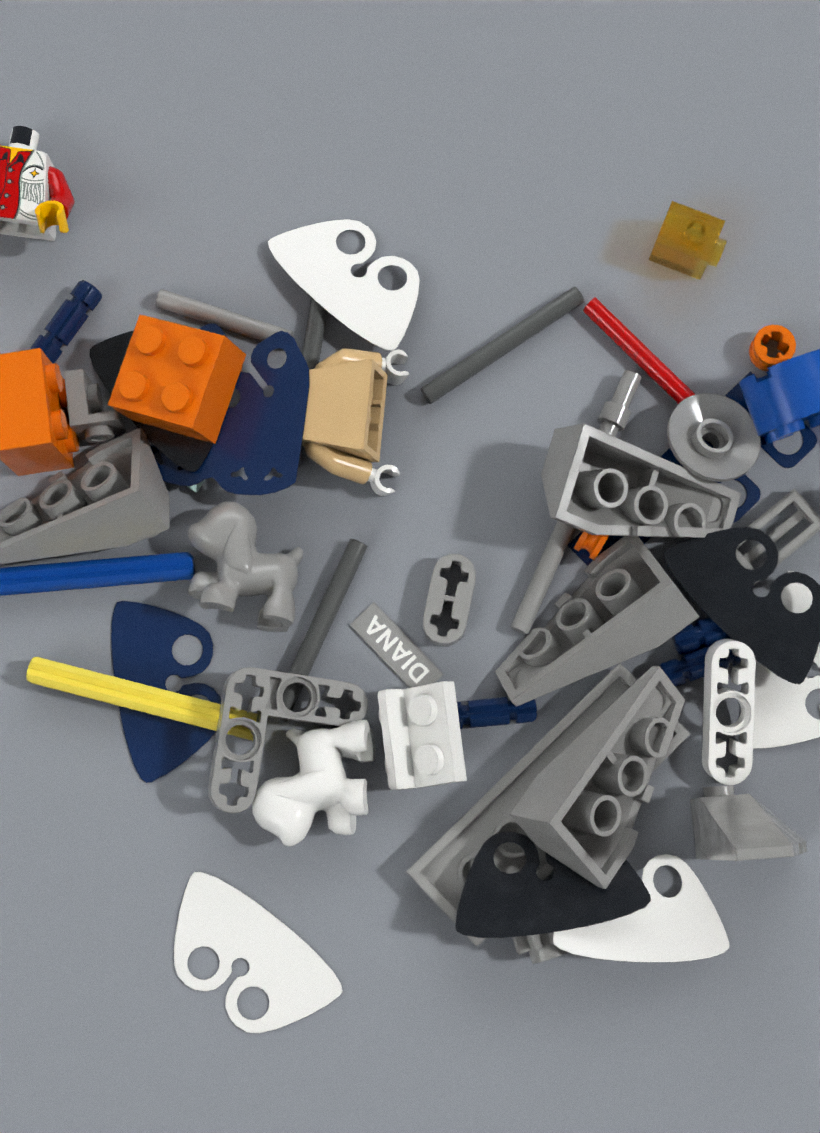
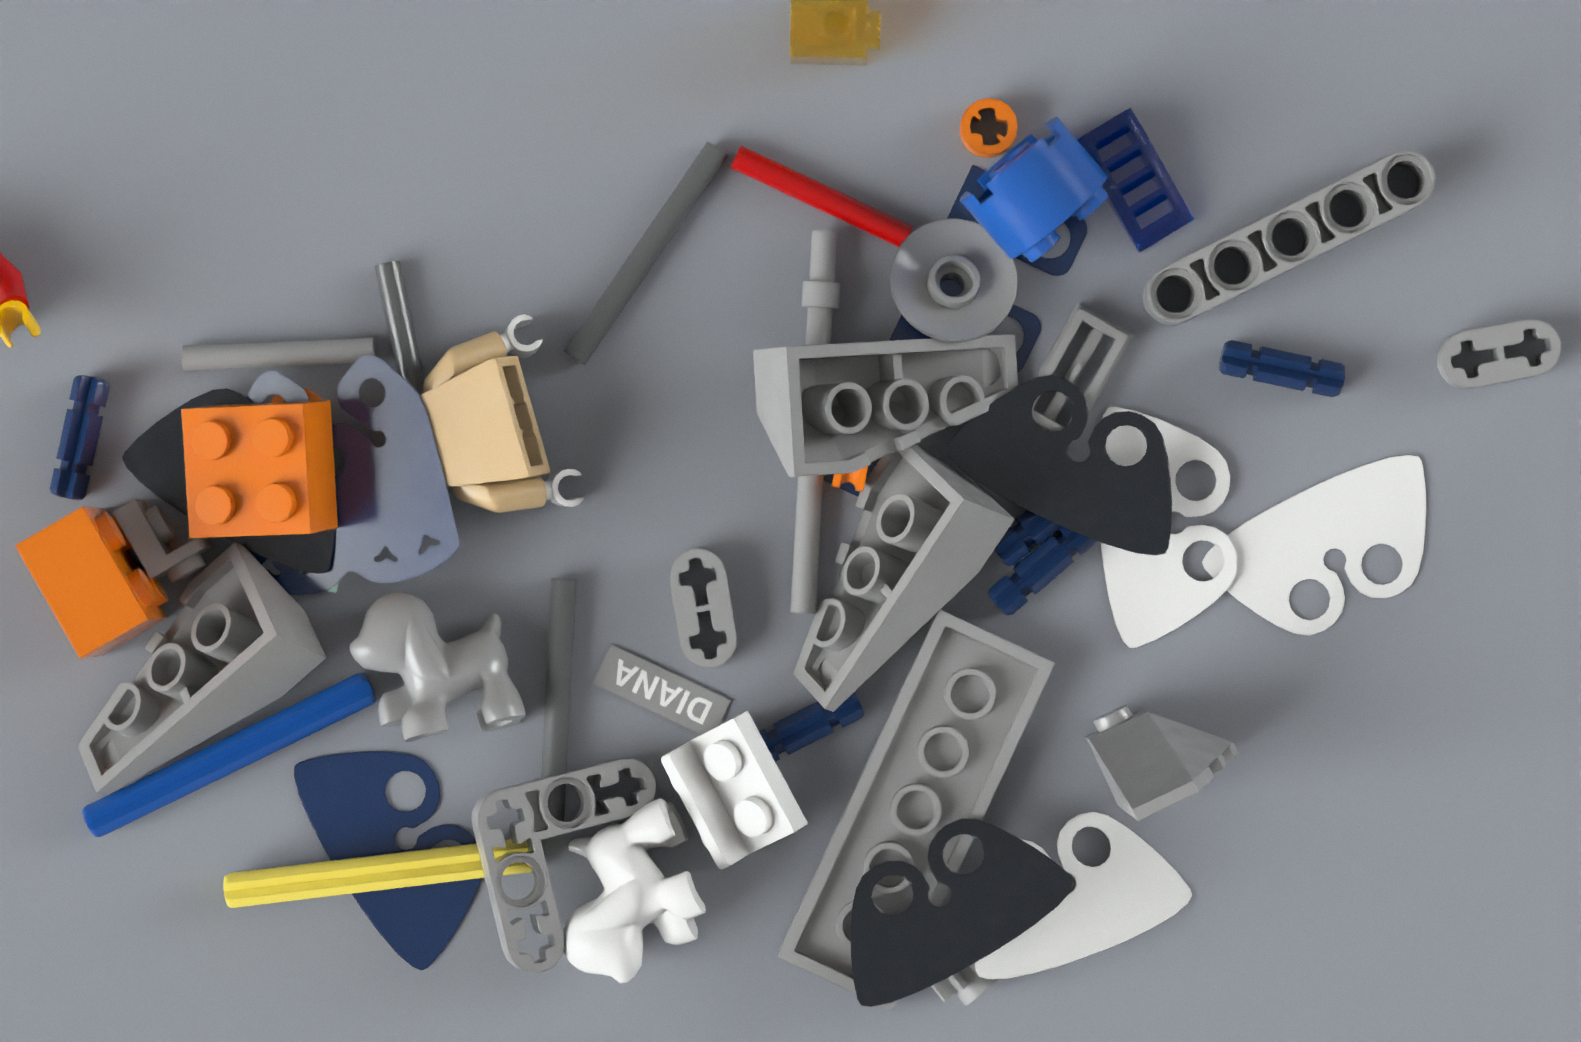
camera: 20 degrees left, 10 degrees up
(357, 302) = (437, 270): white piece -> none
(592, 791) = (963, 777): light grey wedge -> none
(716, 747) = (1122, 655): white beam -> none

